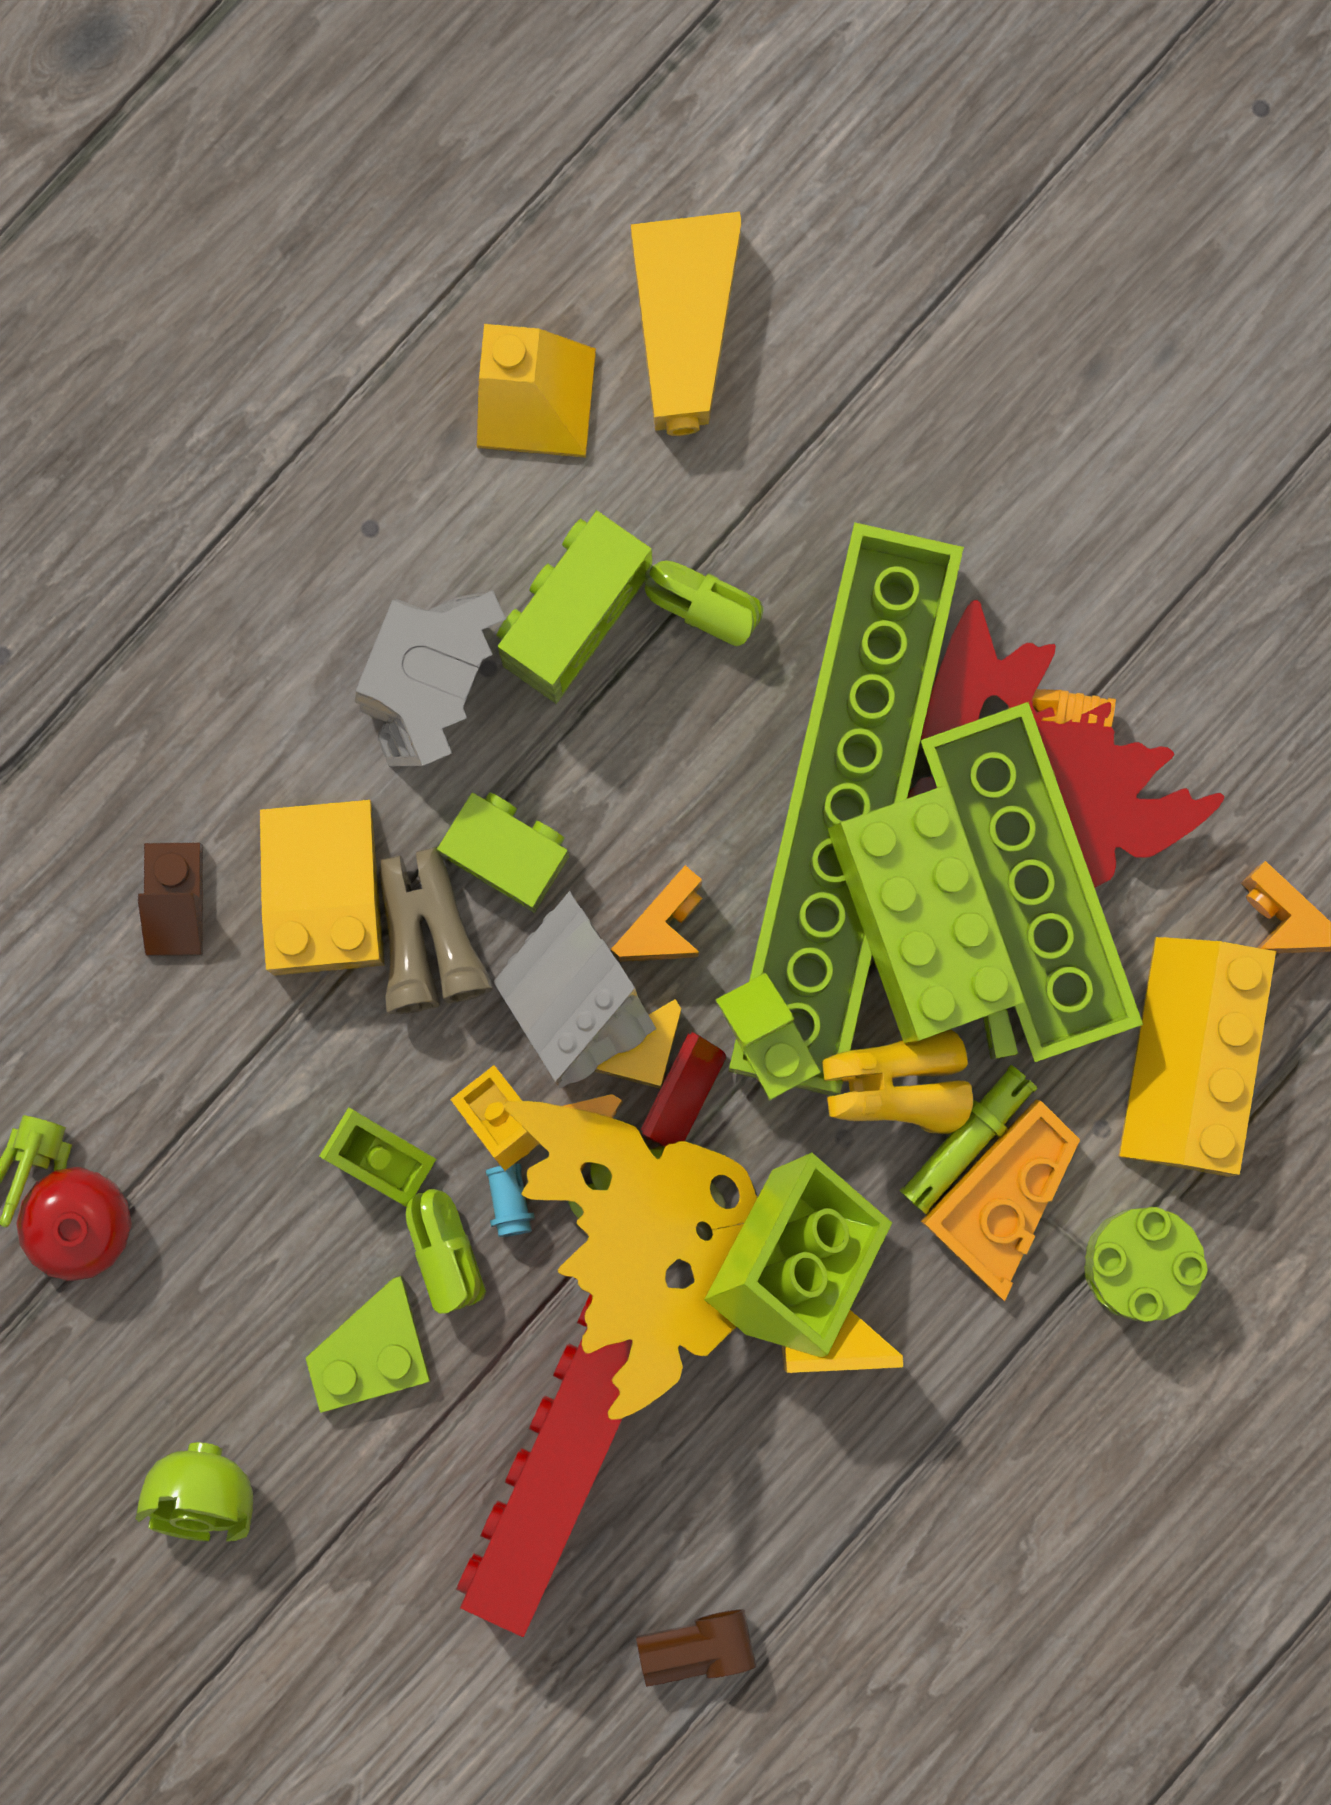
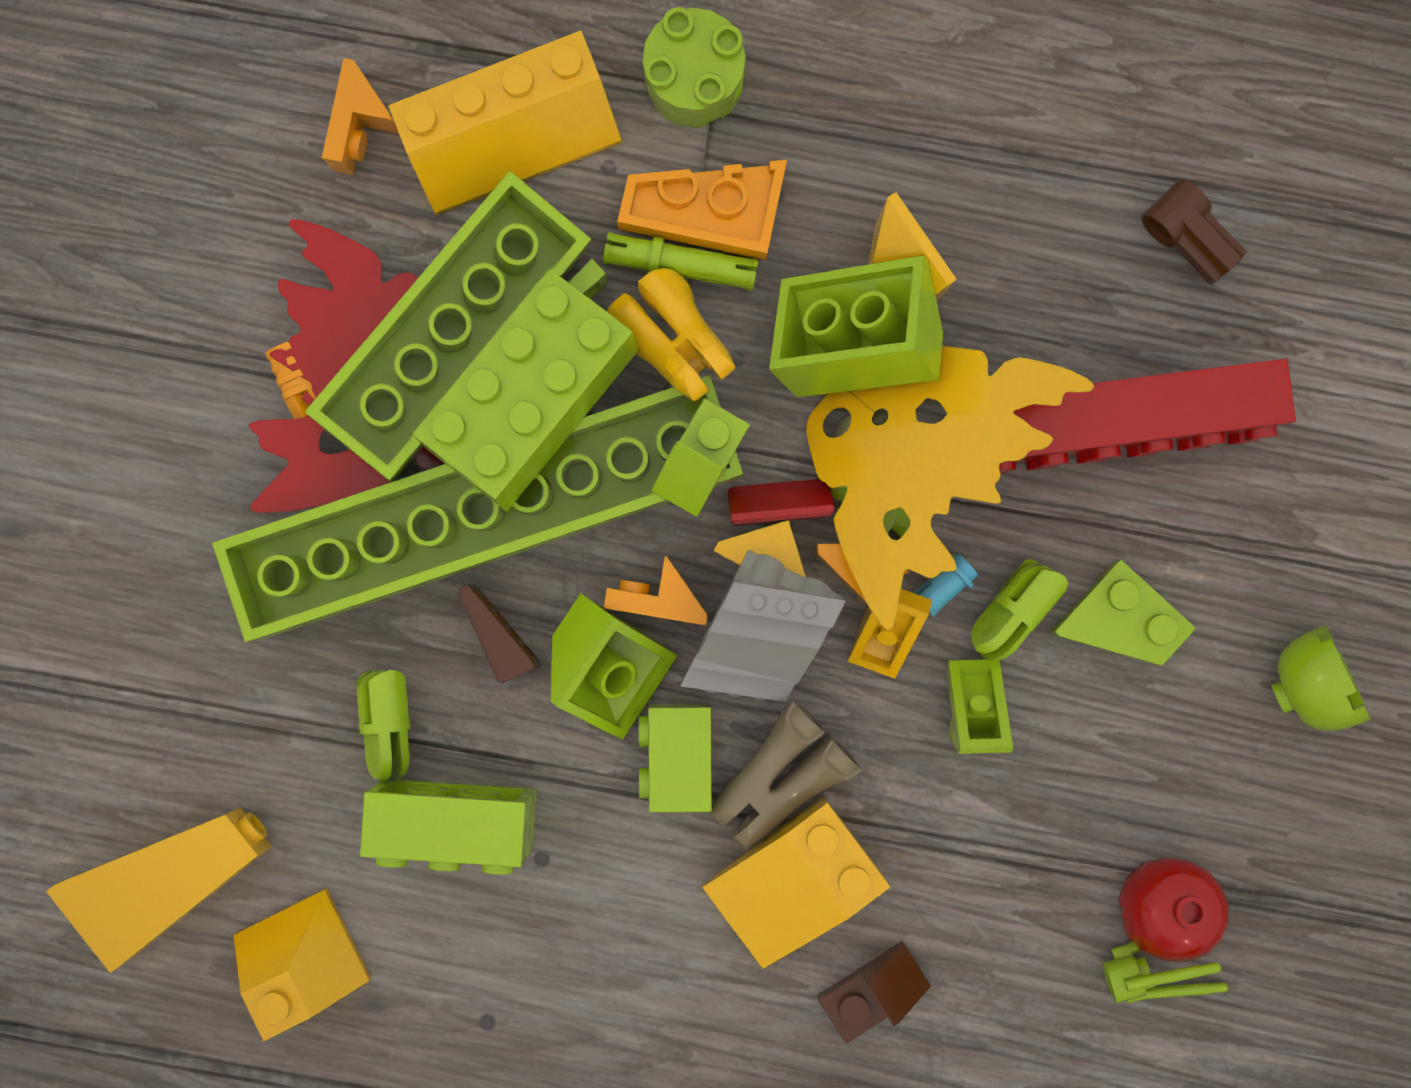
camera: 120 degrees left, 5 degrees up
(424, 673) = (577, 912): light grey slope -> none
(629, 834) = (604, 667): none -> lime slope
(713, 752) = (501, 644): none -> reddish brown slope

